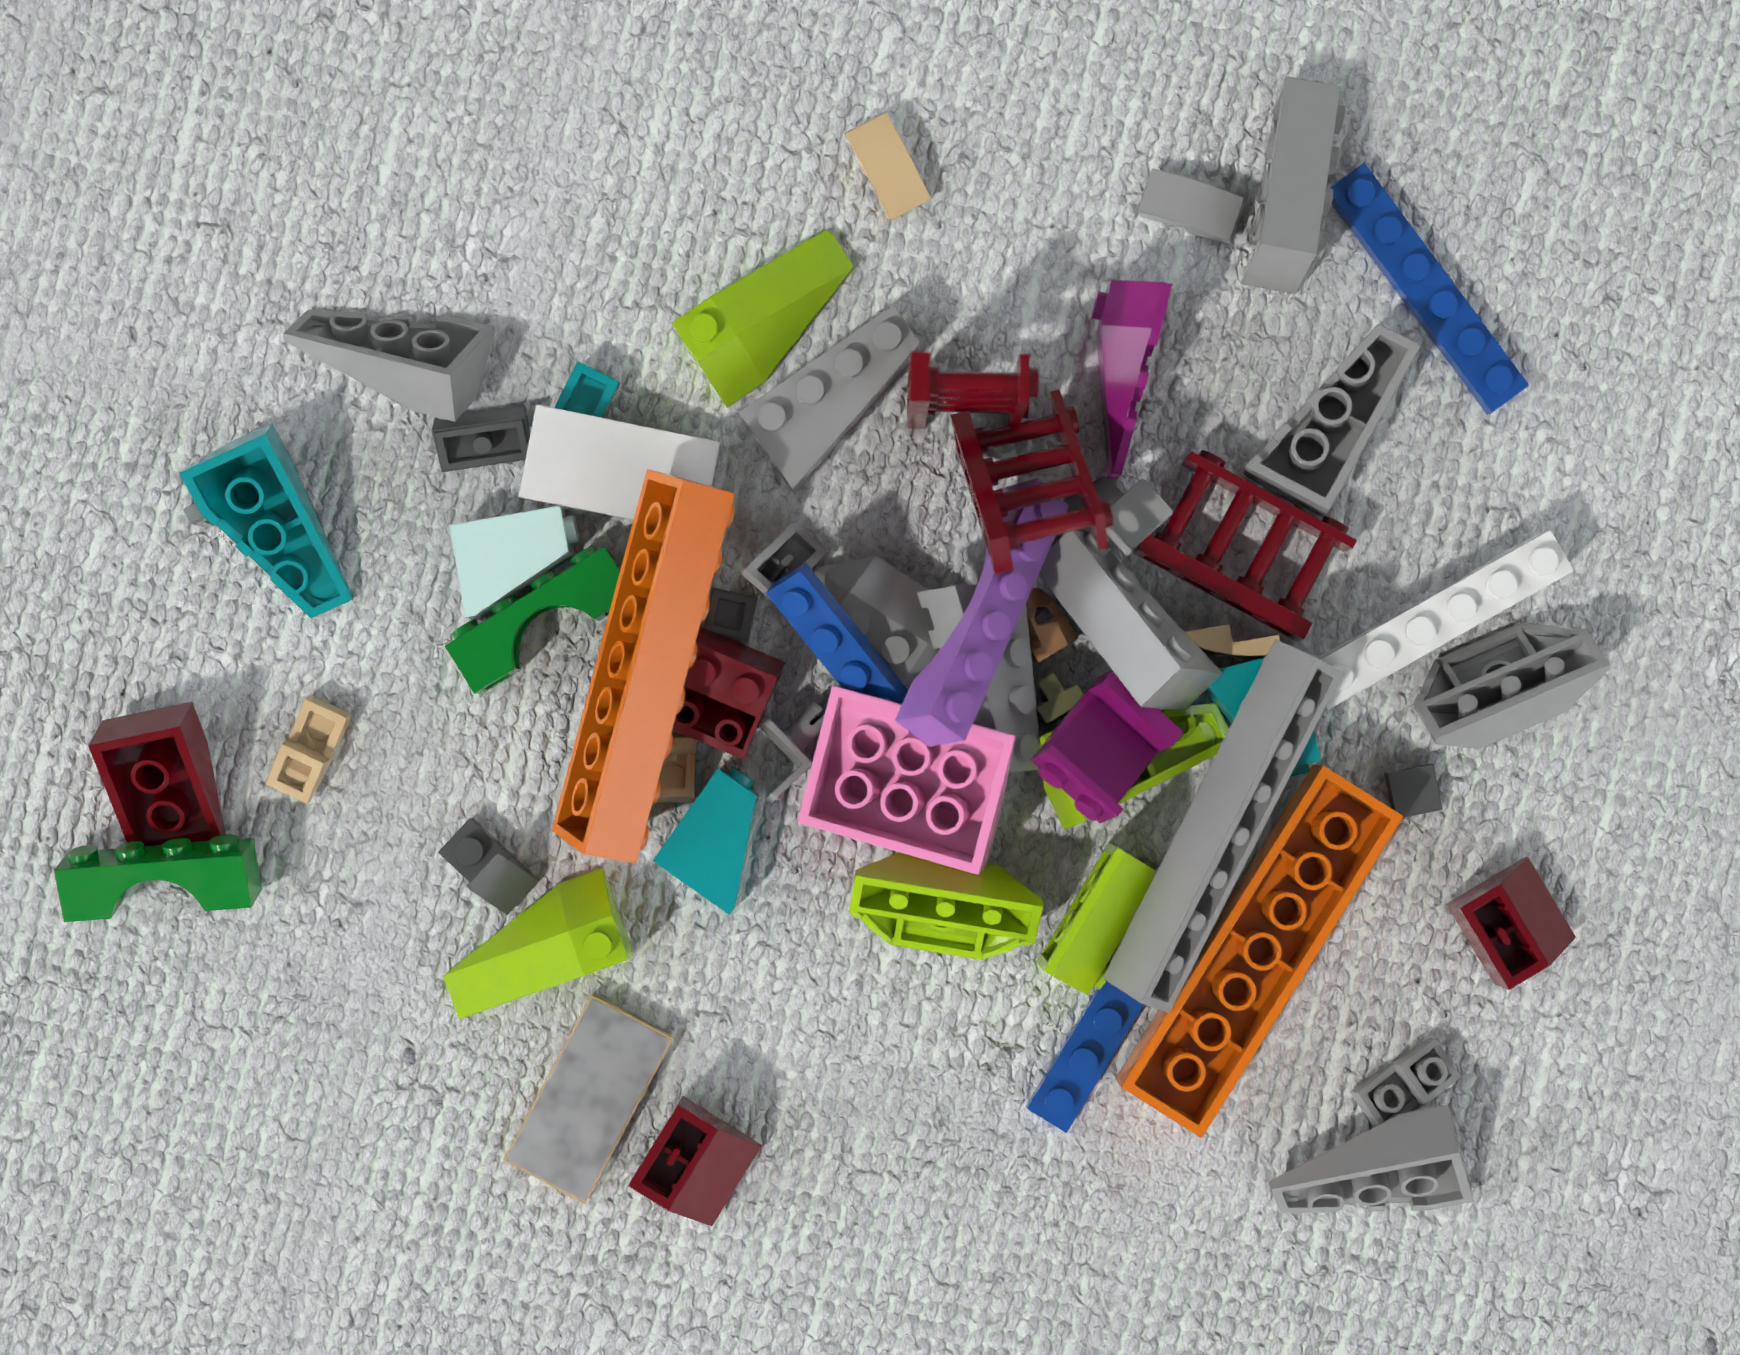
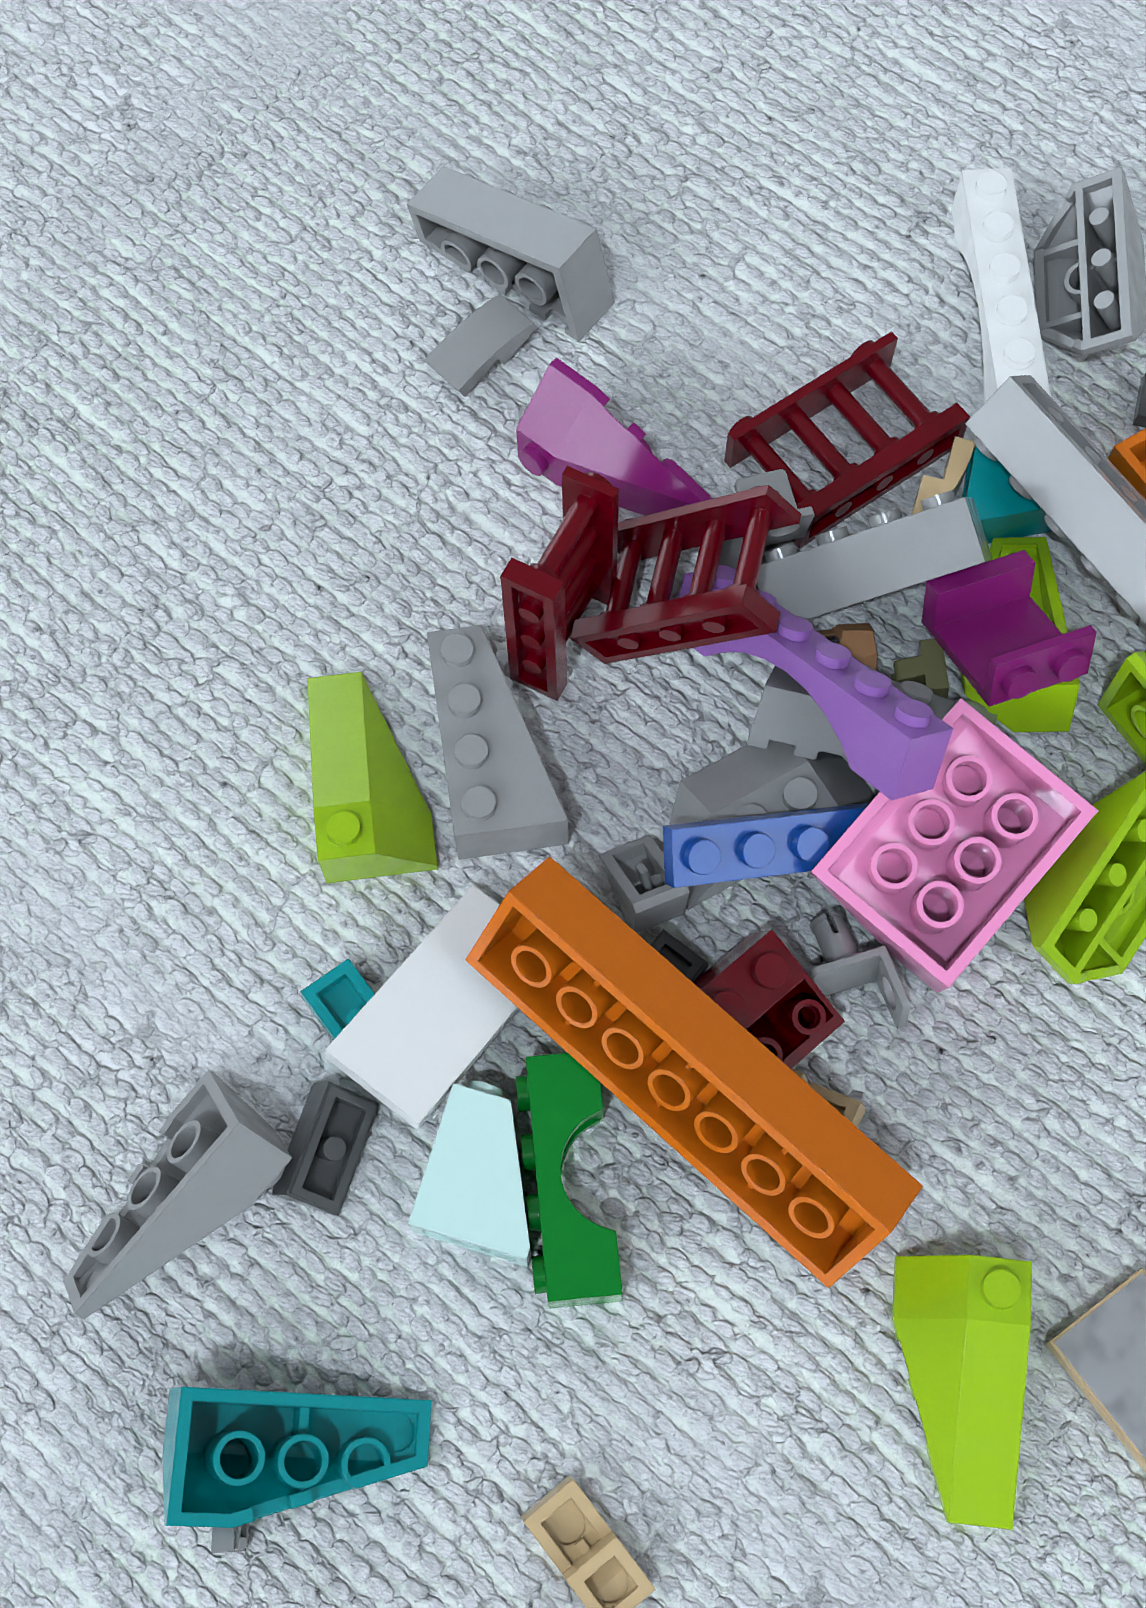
camera: 65 degrees left, 20 degrees down
(488, 867) = (834, 1394): dark grey slope -> none
(713, 839) = (921, 1102): teal slope -> none
(887, 166) = (274, 587): tan slope -> none
(1327, 435) = (767, 304): light grey wedge -> none
(1426, 289) = (684, 191): blue plate -> none

